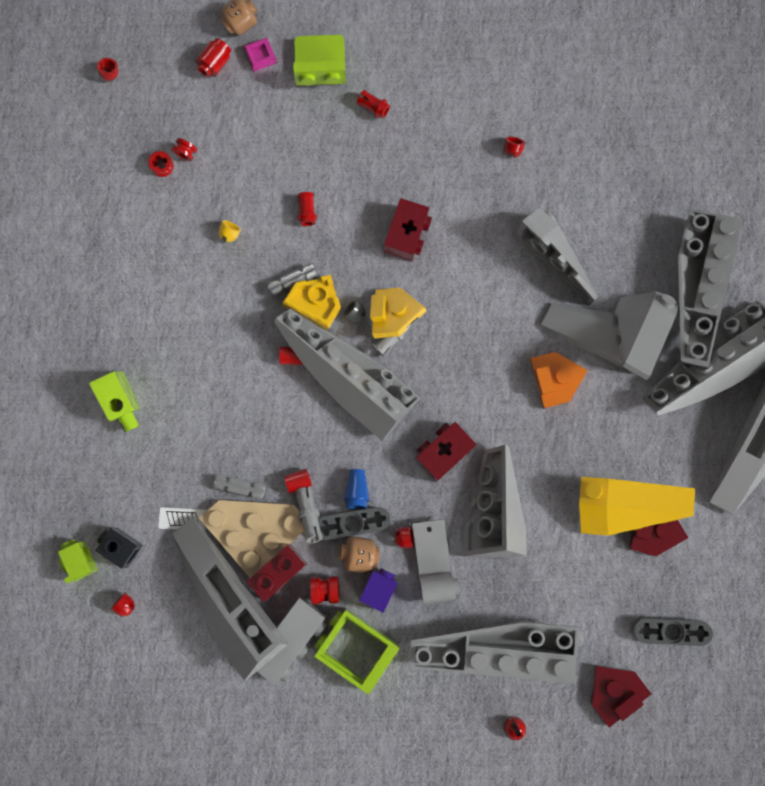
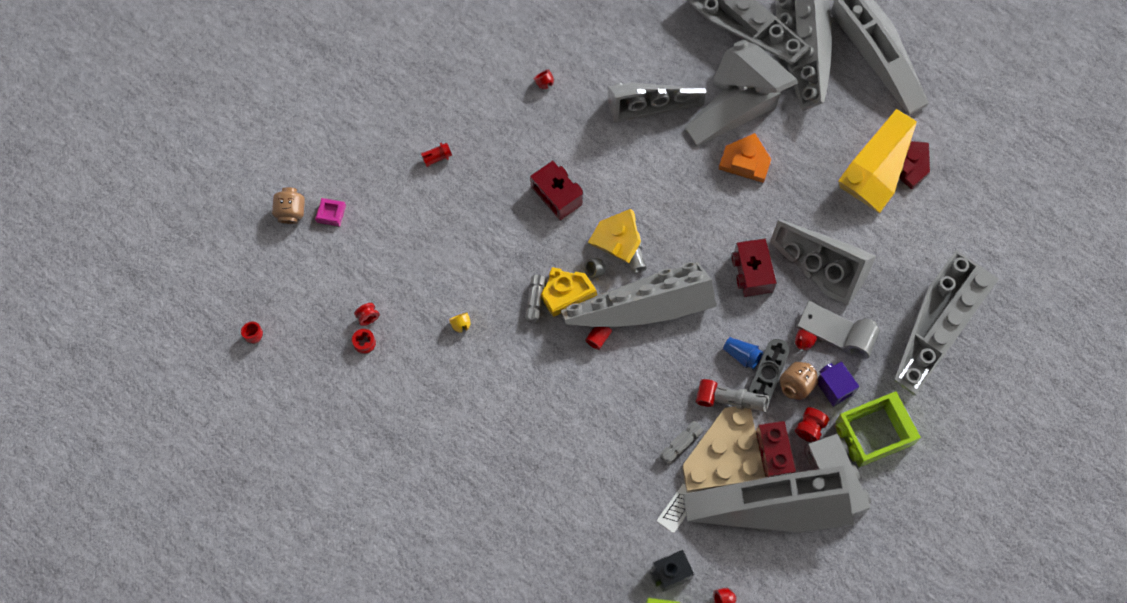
camera: 55 degrees left, 15 degrees down
(108, 392) = (533, 493): lime torso -> none
(213, 58) = (307, 246): red brick -> none
(306, 209) = (486, 253): red pin -> none
(319, 60) = (372, 170): lime bracket -> none
(509, 730) = (1008, 355): red hinge -> none
(617, 693) = (1022, 262): dark red plate -> none
(691, 640) = (994, 206): dark grey beam -> none

